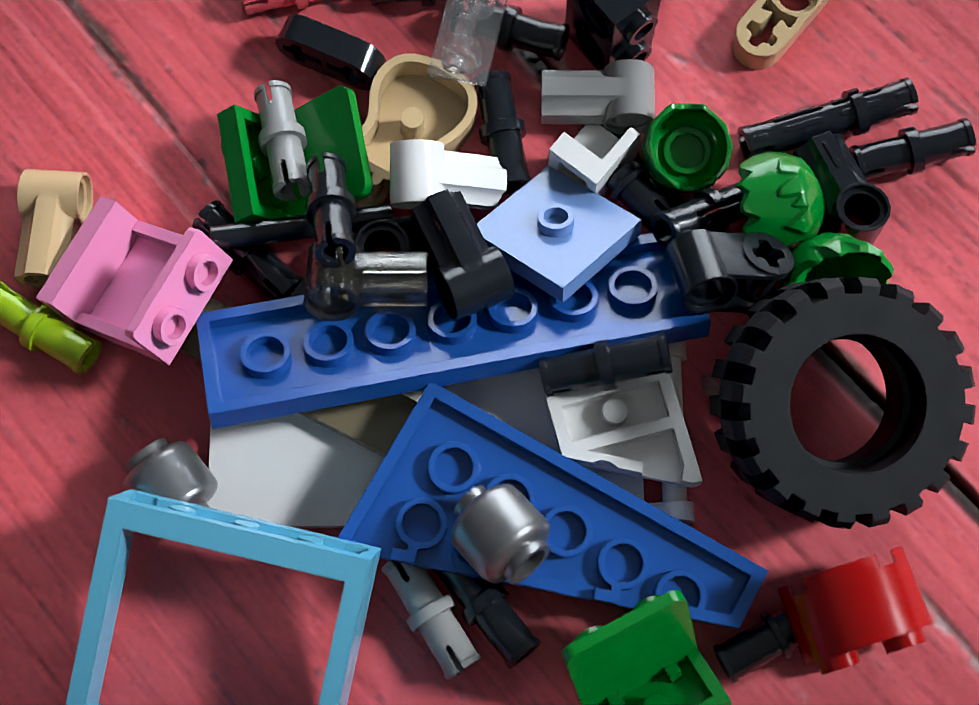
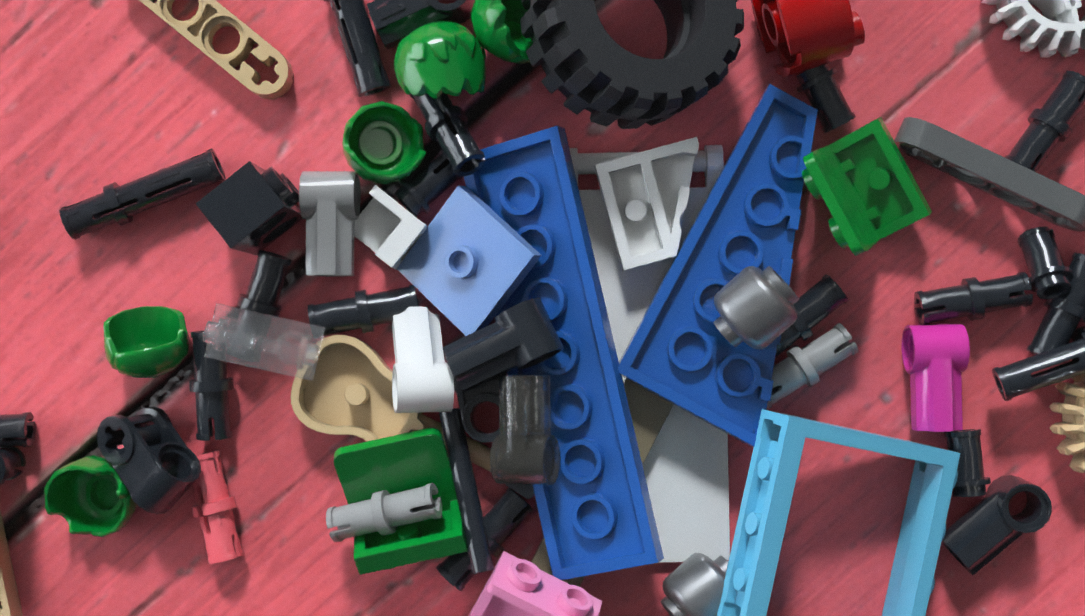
camera: 85 degrees left, 15 degrees up
(329, 51) = (285, 473): black beam -> none
(330, 210) = (466, 464): black pin -> none
(605, 365) = (601, 217): black pin -> none
(726, 269) = (511, 109): black piece -> none

